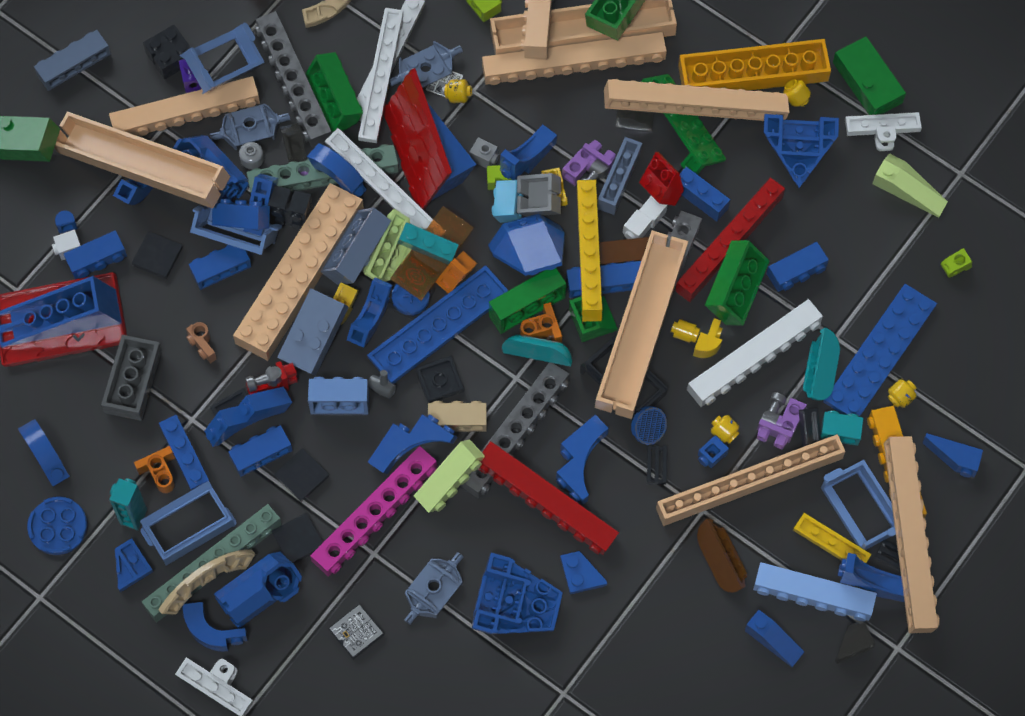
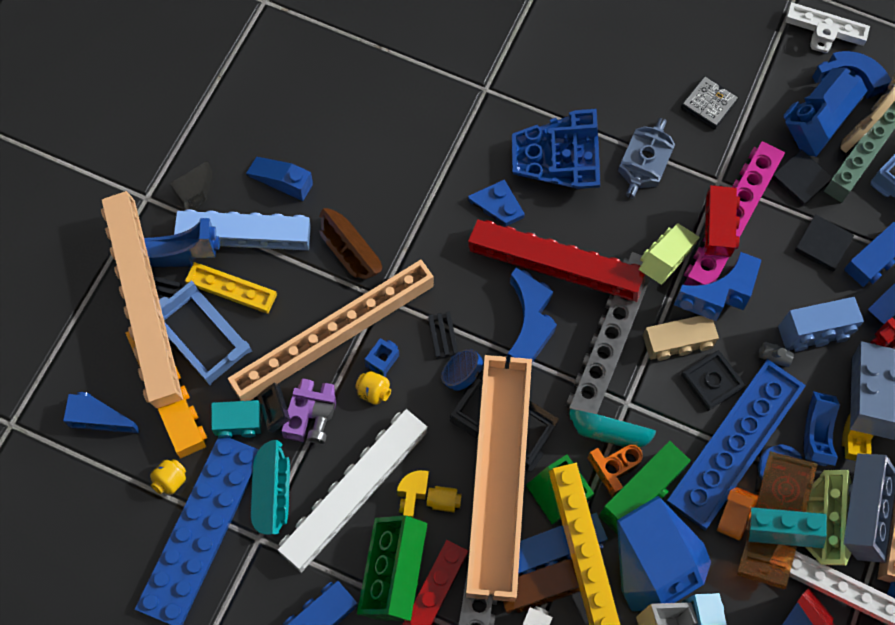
camera: 165 degrees right, 0 degrees up
(394, 496) = (721, 221): none -> red brick

